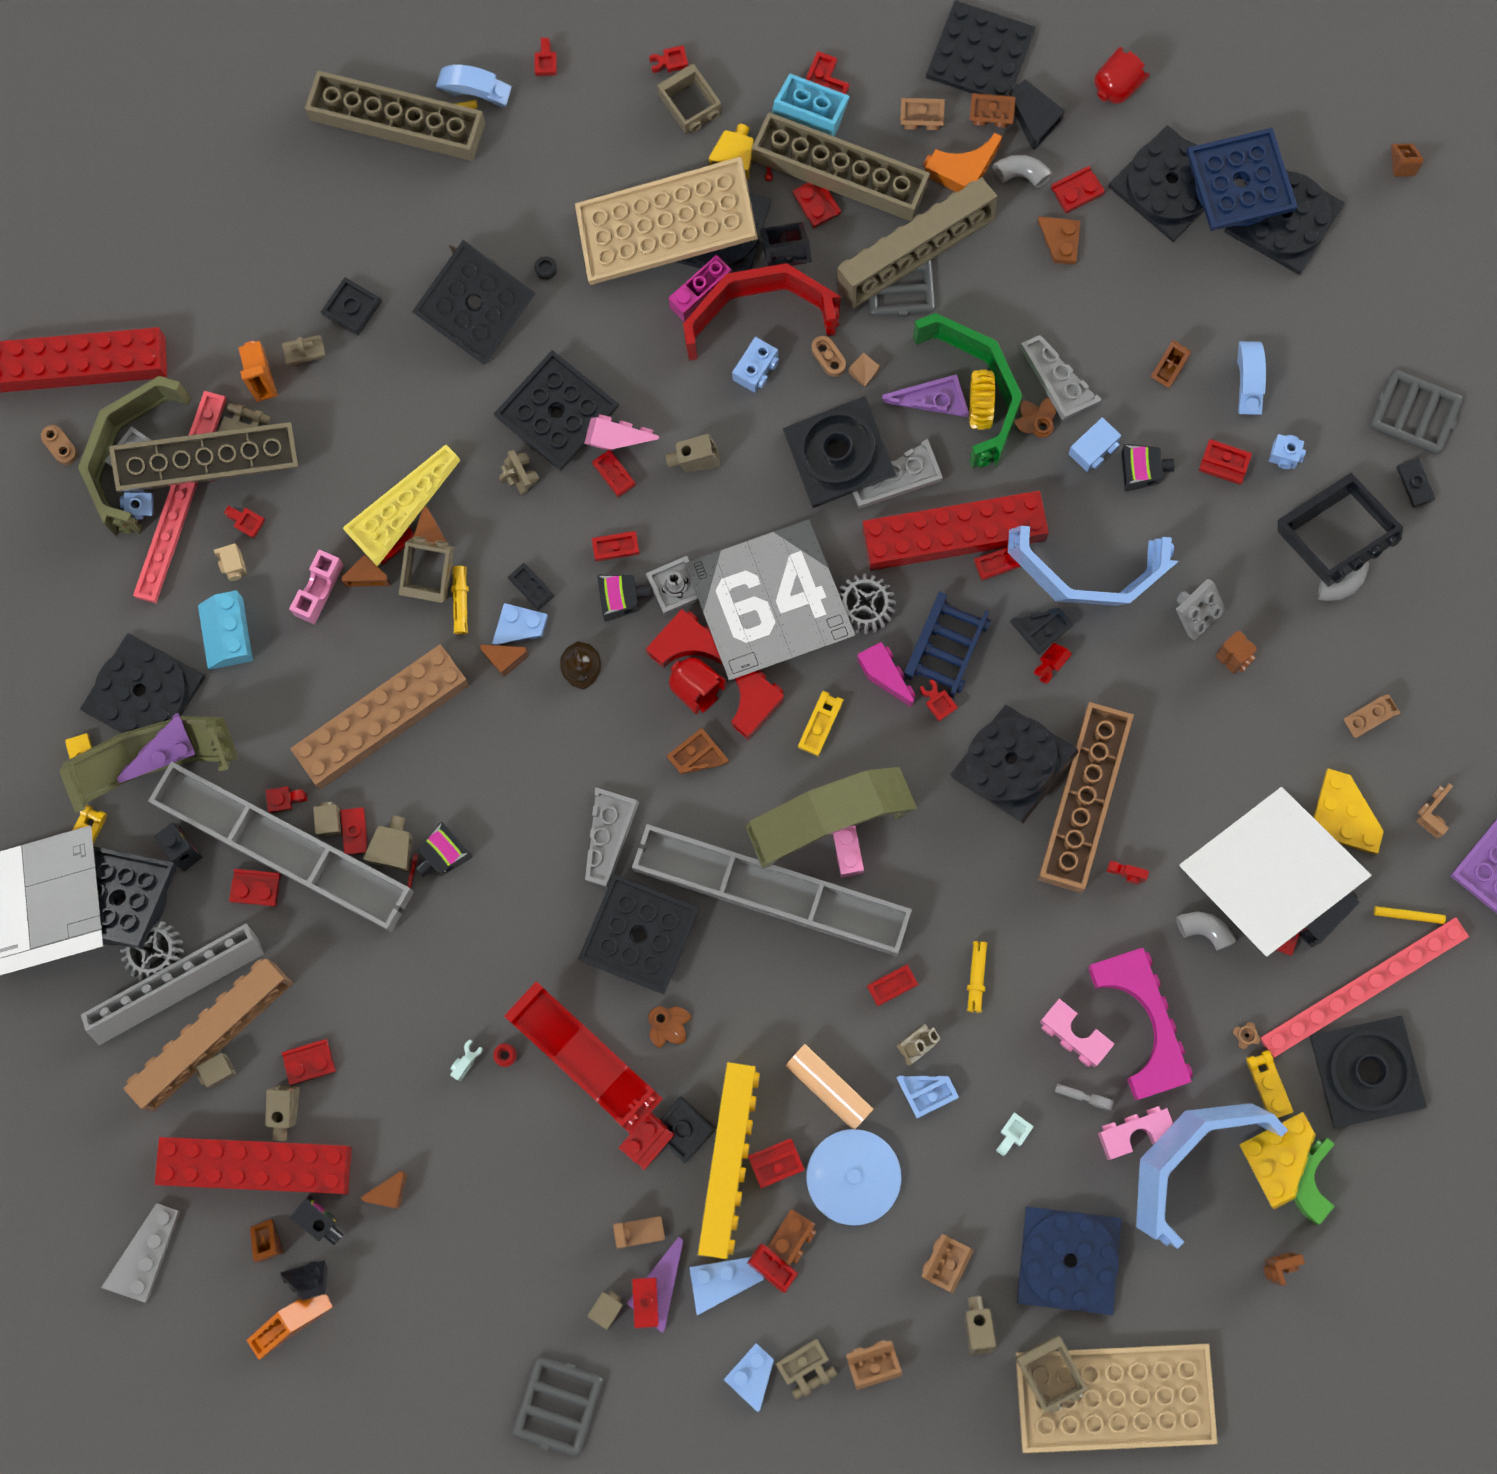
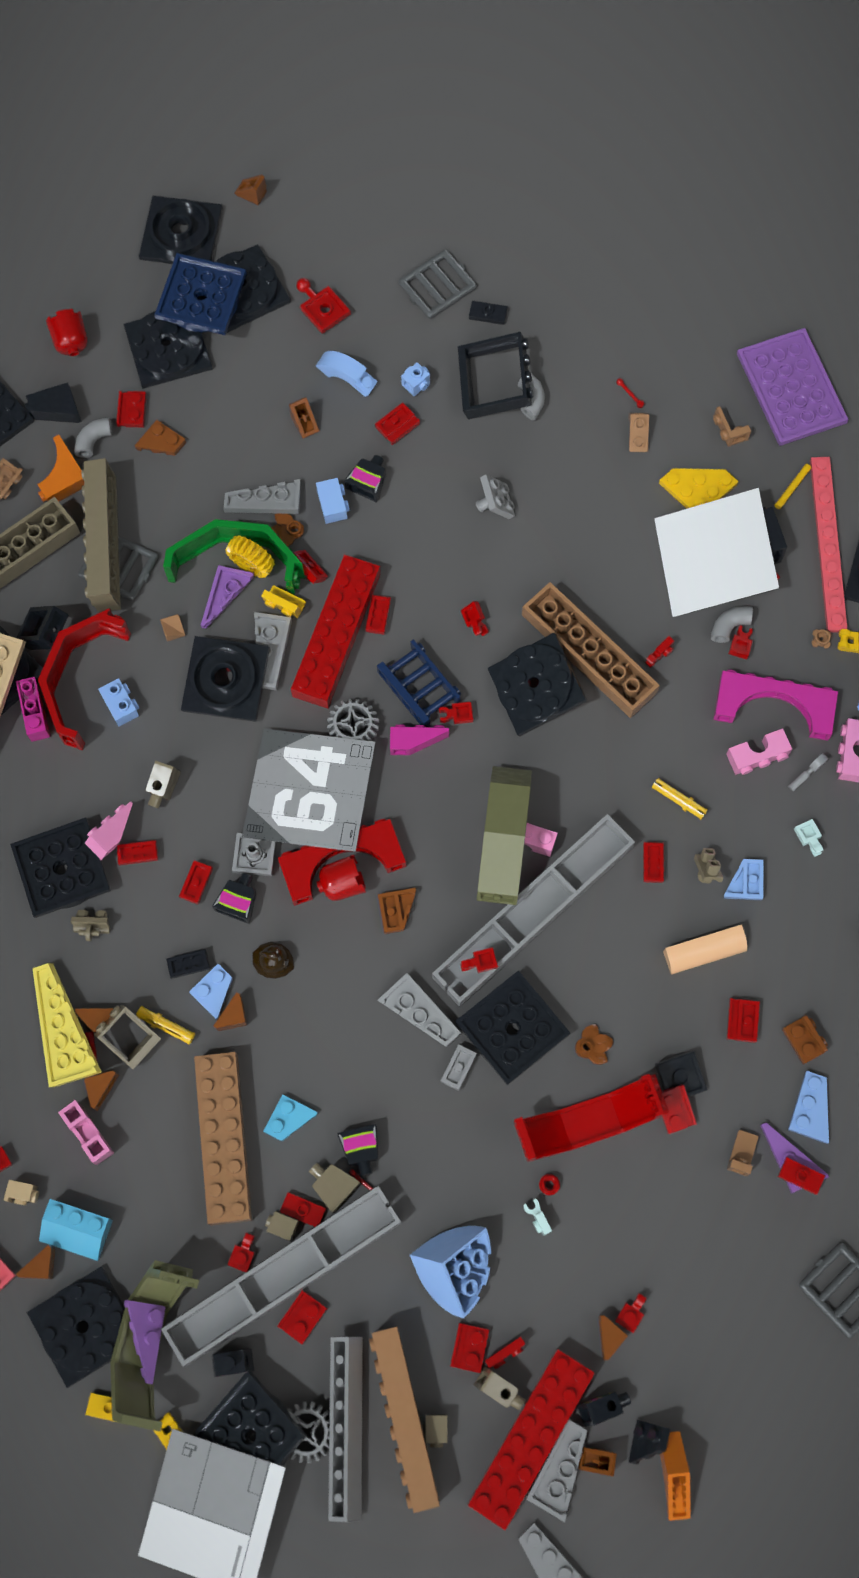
camera: 65 degrees left, 5 degrees down
(174, 620) = (40, 1266): none -> dark orange slope
(231, 1210) = (556, 1479): none -> light grey wing
(310, 1094) = (513, 1348): none -> red plate
(374, 1005) = (454, 1267): none -> light blue brick
(420, 1202) = (629, 1315): none -> red plate
(434, 767) = (288, 1118): none -> medium azure wing
(571, 903) = (458, 1067): none -> light grey plate
(606, 1309) = (790, 1210): dark tan brick -> none
(684, 866) = (482, 960): none -> red plate
(727, 1161) = (725, 1054): yellow brick -> none
(772, 1268) = (821, 1065): red plate -> none
(816, 204) = (21, 592): red plate -> none
(820, 724) = (425, 806): yellow plate -> none
(829, 357) = (146, 647): medium nougat plate -> none
(853, 1177) = (782, 969): light blue dish -> none
(956, 461) = (286, 602): none -> yellow bracket
(992, 109) = (33, 429): dark orange bracket -> none
(1009, 464) = (311, 569): none -> red plate
(1042, 628) = (445, 612): black wing -> none
(1157, 564) = (448, 507): light blue panel -> none
(1187, 953) = (741, 644): none -> red plate
(1237, 653) = (543, 490): dark orange brick -> none
(1308, 141) = (198, 241): none -> black piece
(1309, 300) = (324, 298): none -> red plate
(1408, 700) = (640, 403): none -> red hinge

